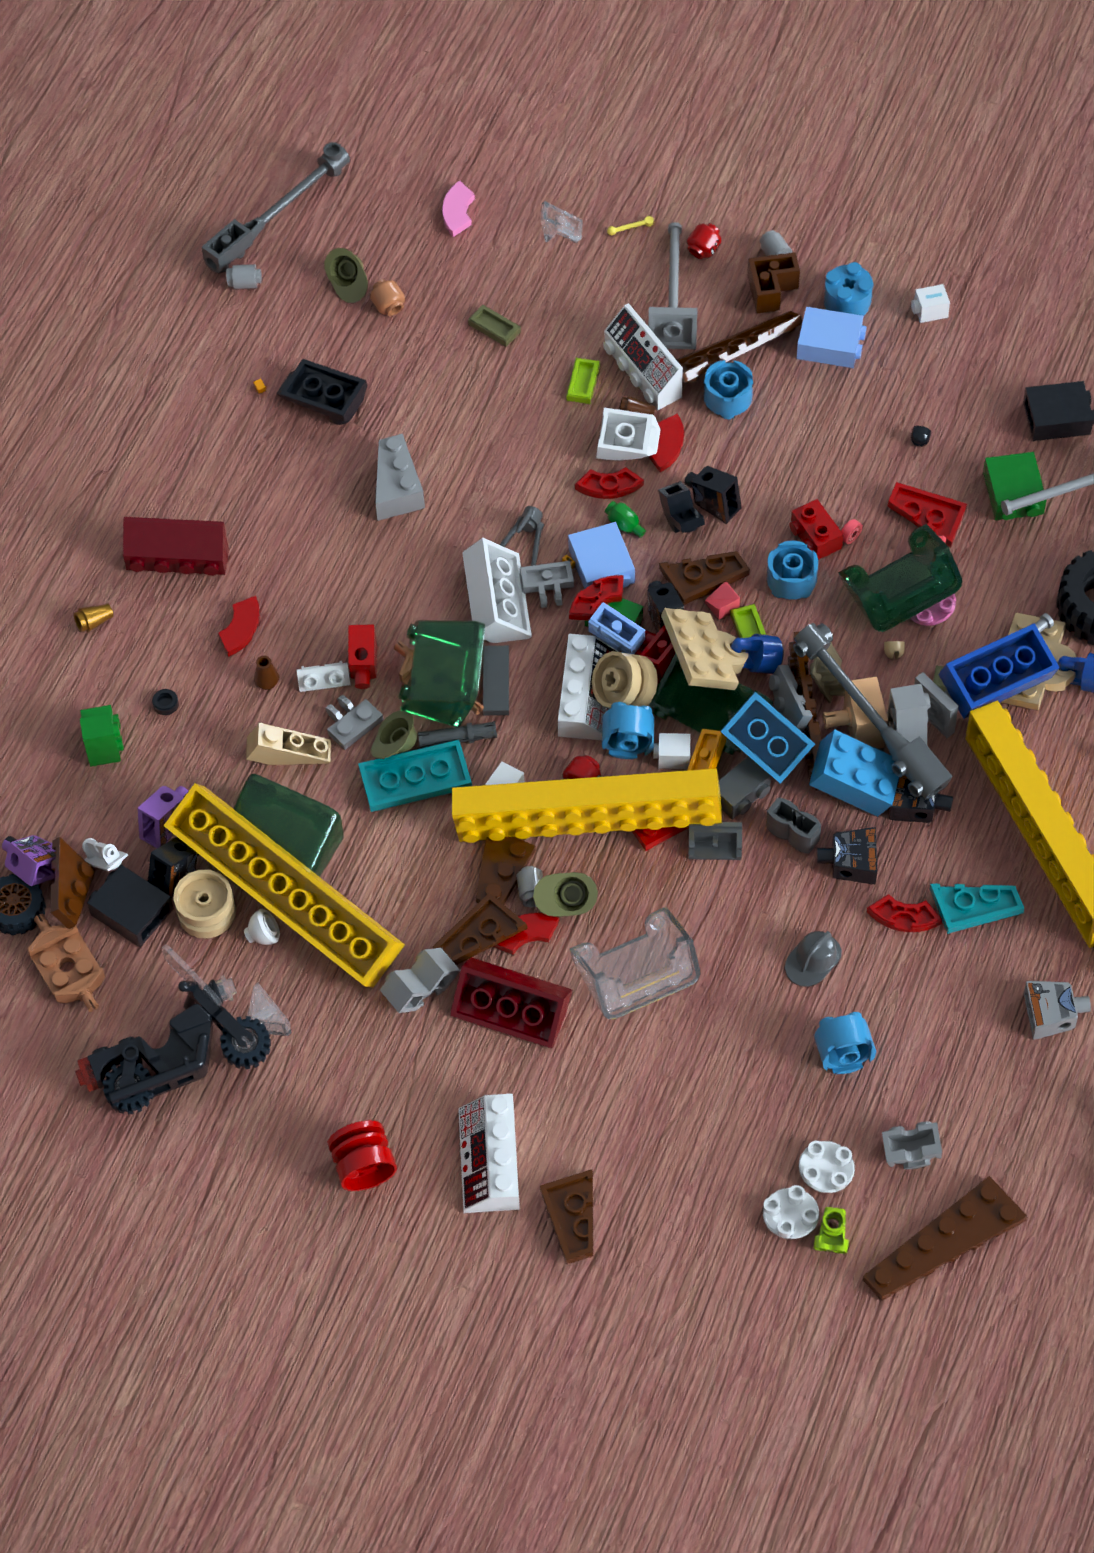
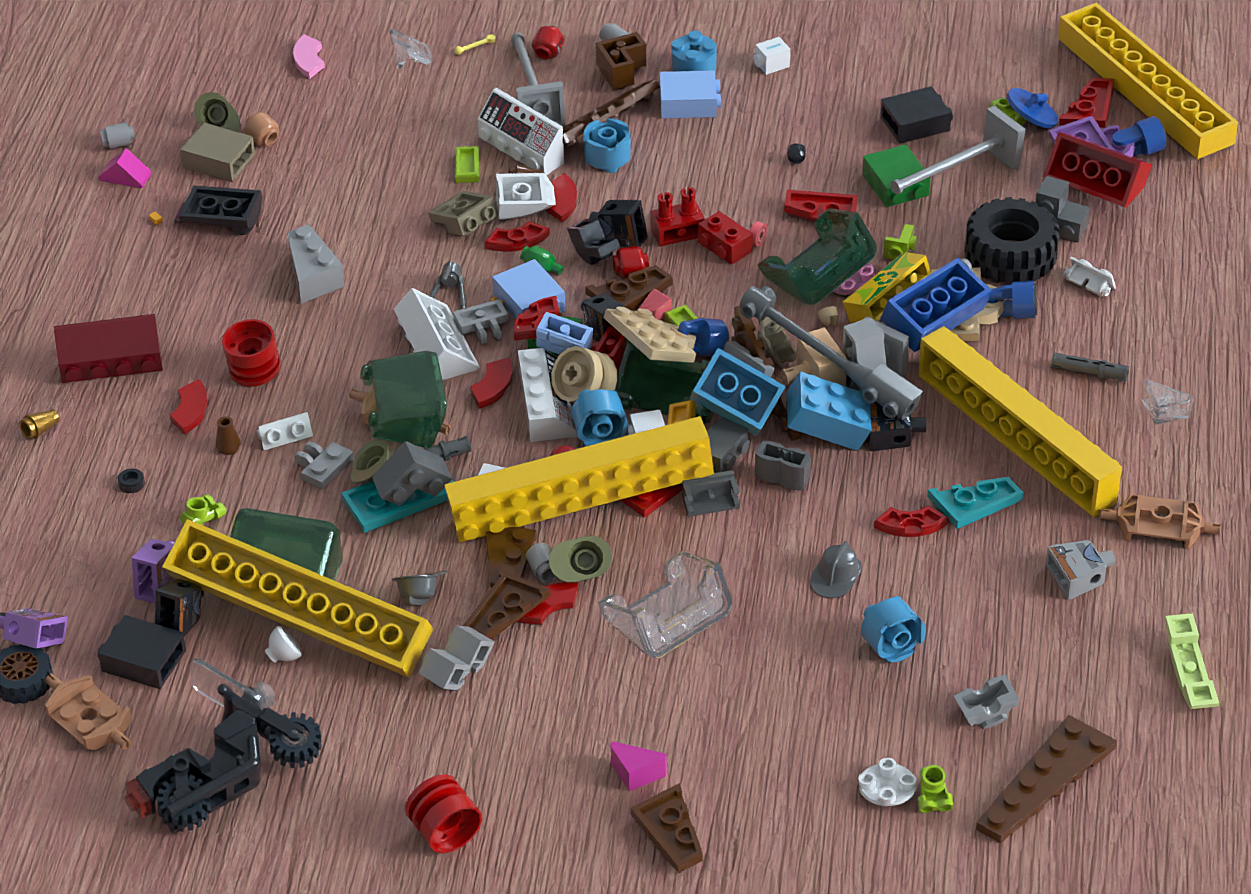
camera: 15 degrees left, 15 degrees down
(71, 883) = (77, 639): reddish brown wing -> none
(101, 735) = (75, 515): green brick -> none
(102, 855) = (102, 610): white hinge -> none
(204, 903) = (219, 633): tan wheel -> none
(222, 754) = (202, 510): none -> lime plate
(237, 238) = (104, 104): dark grey bar -> none
(243, 322) = (126, 170): none -> dark pink slope
(268, 1013) = (302, 704): clear slope -> none
(286, 747) = (263, 492): tan slope -> none
(310, 579) = (251, 352): none -> red wheel
(337, 317) = (217, 152): none -> dark tan brick
(362, 654) = (323, 410): red torso -> none
(406, 887) = (418, 588): none -> dark grey piece
(425, 761) = (411, 470): none -> dark grey brick
(489, 1154) = (571, 792): white slope -> none
(494, 325) = (369, 136): olive tile -> none
(496, 680) = (458, 408): dark grey tile -> none
(510, 1002) = (552, 661): dark red slope -> none
(540, 660) = (495, 382): none -> red tile
(559, 1139) = (637, 765): none -> dark pink slope
(563, 444) = (464, 212): none -> dark tan plate
(712, 540) = (629, 260): none -> red head
(772, 500) = (677, 222): none -> red brick
(792, 570) = (713, 270): dark azure brick -> none
(826, 1166) = (908, 738): white dish -> none
(852, 855) = (846, 481): torso -> none
(962, 630) = (889, 282): none -> yellow brick
(992, 580) = (894, 247): none -> lime bracket

